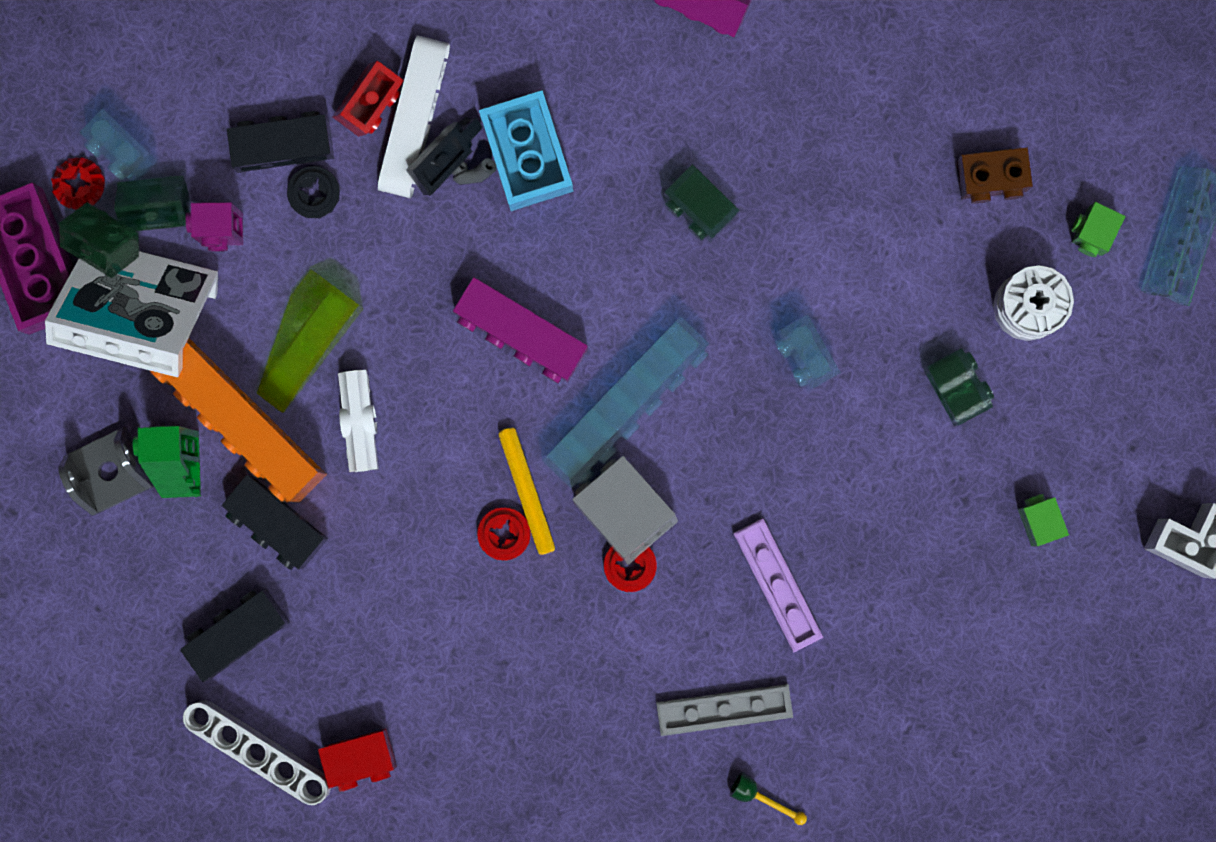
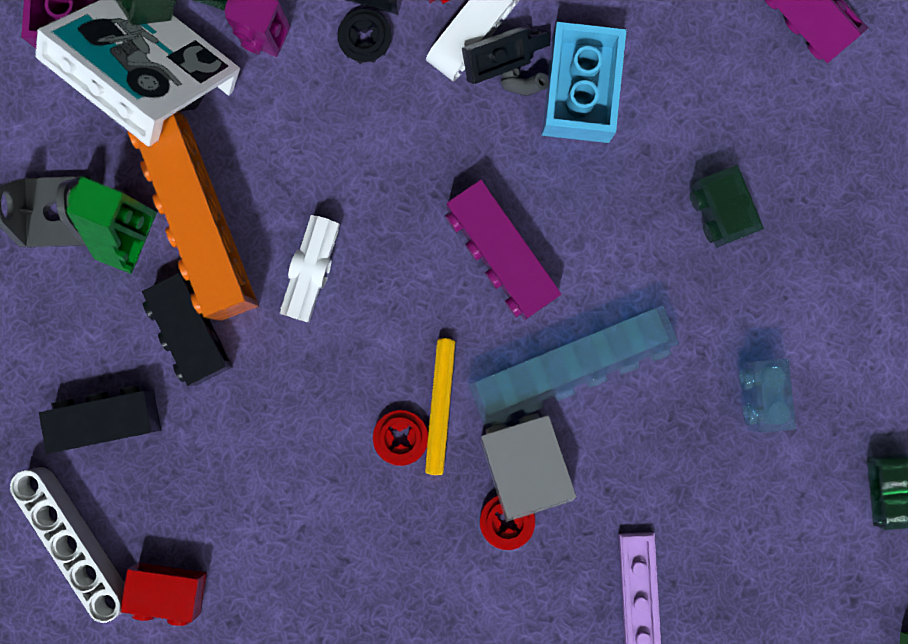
camera: 15 degrees right, 0 degrees up
(308, 333) = (302, 164): clear neon green wedge -> none

